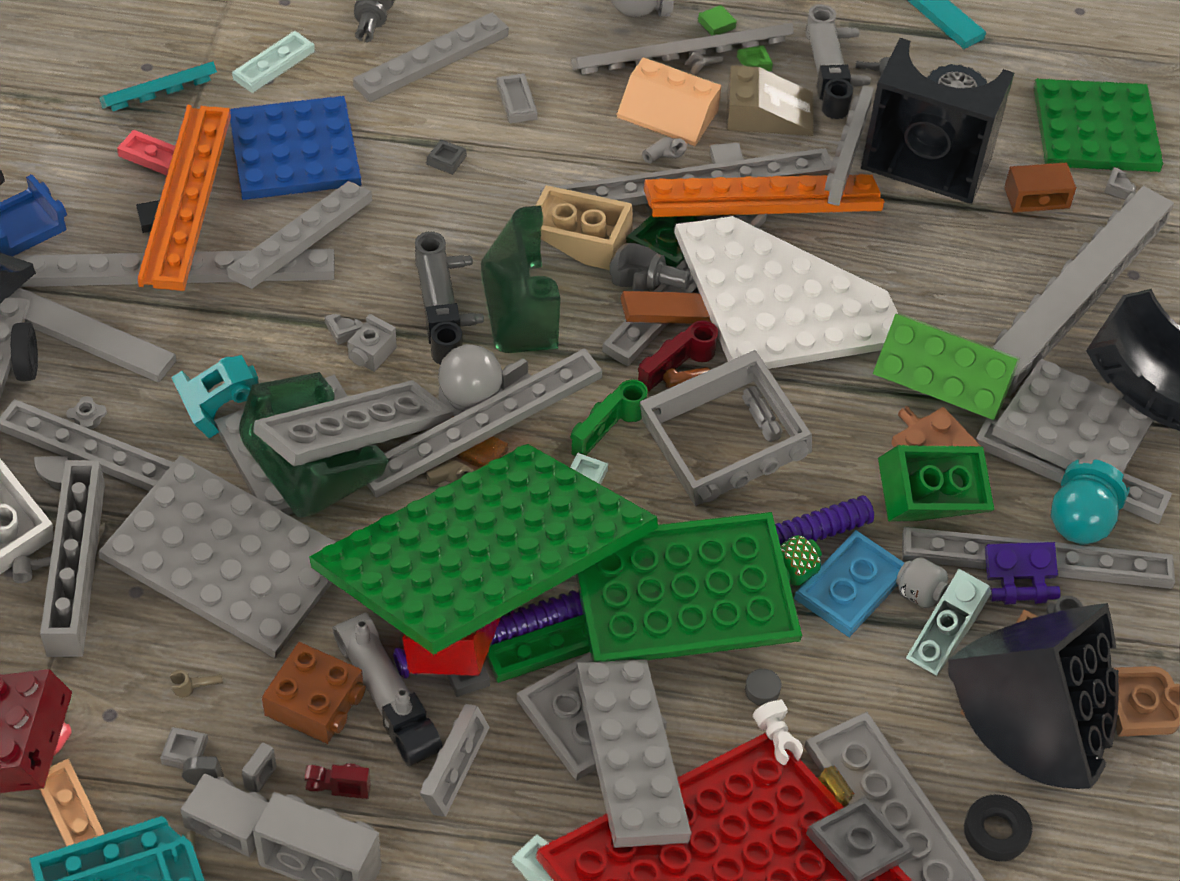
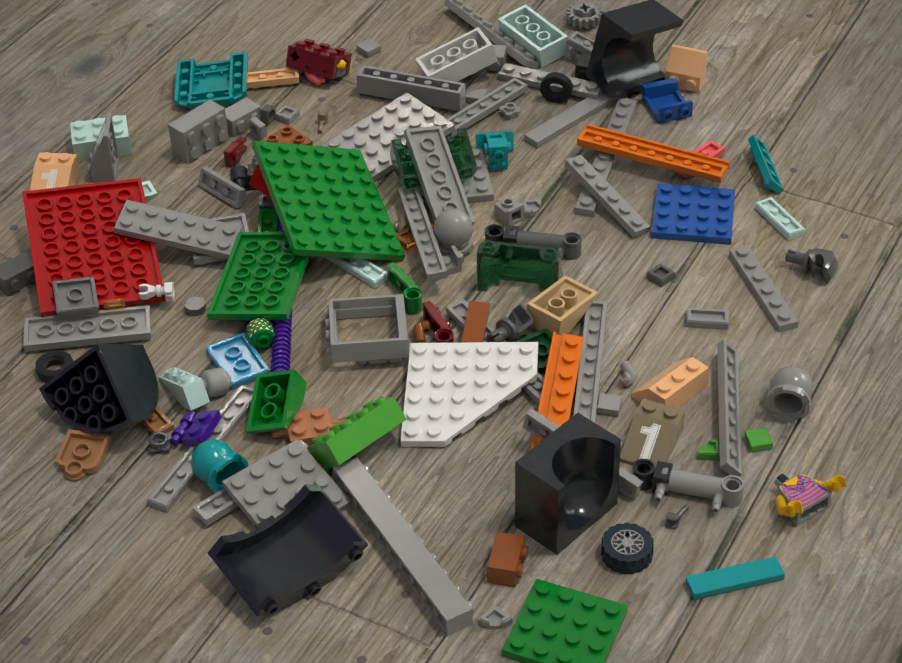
camera: 115 degrees right, 10 degrees down
(697, 61) = (712, 417): light grey hand -> none

